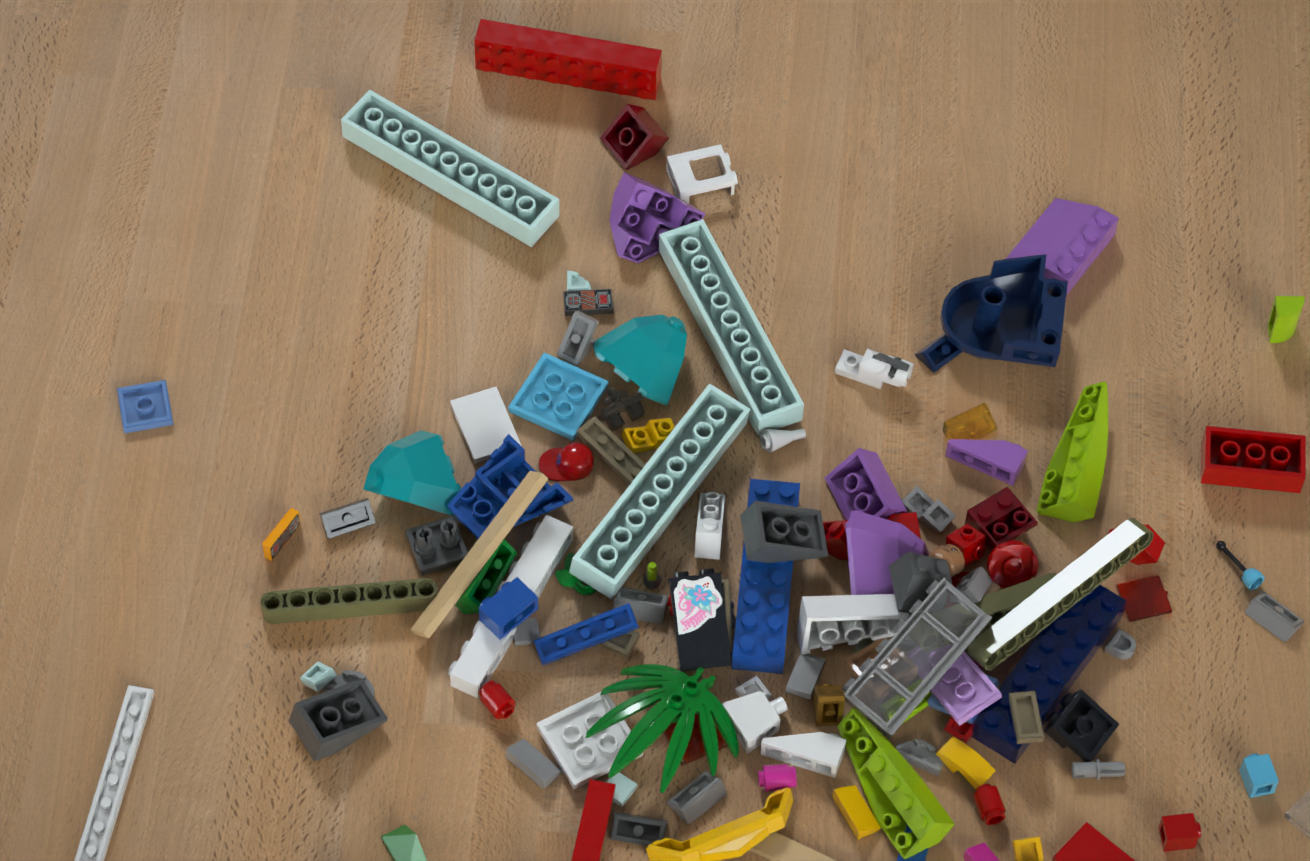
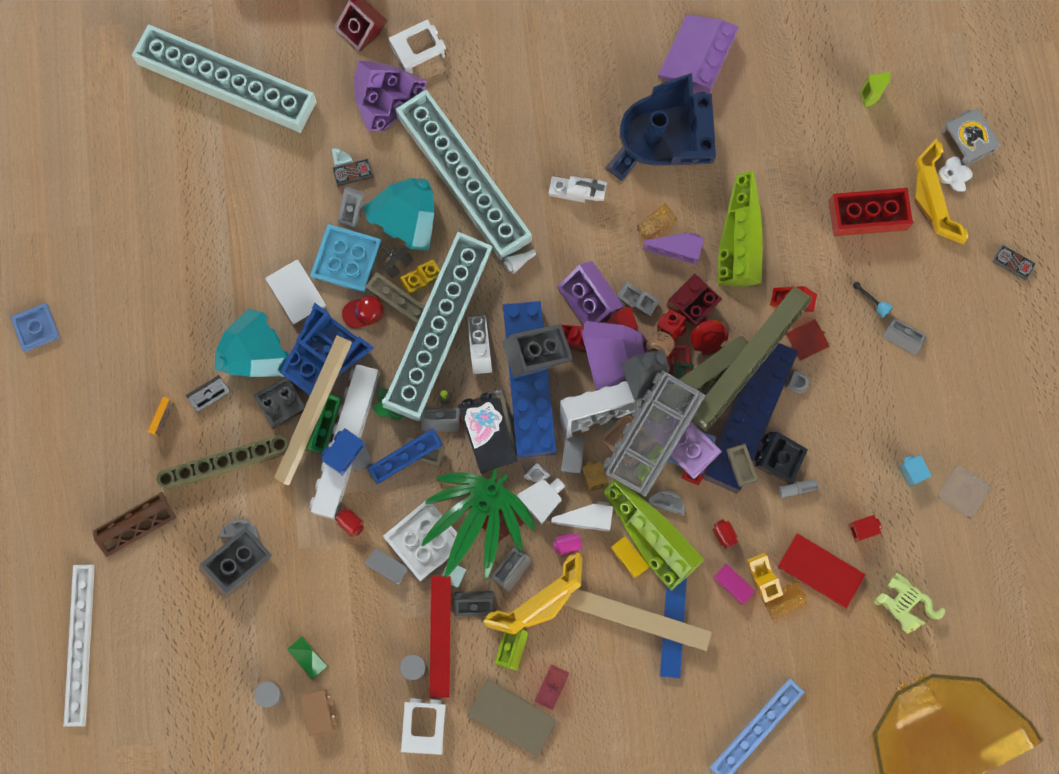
camera: 10 degrees left, 20 degrees up
(213, 644) = (130, 518): none -> reddish brown fence
(318, 676) = (213, 529): light aqua tile -> none
(970, 764) = (702, 502): yellow slope -> none
(974, 584) = (683, 362): light grey slope -> none

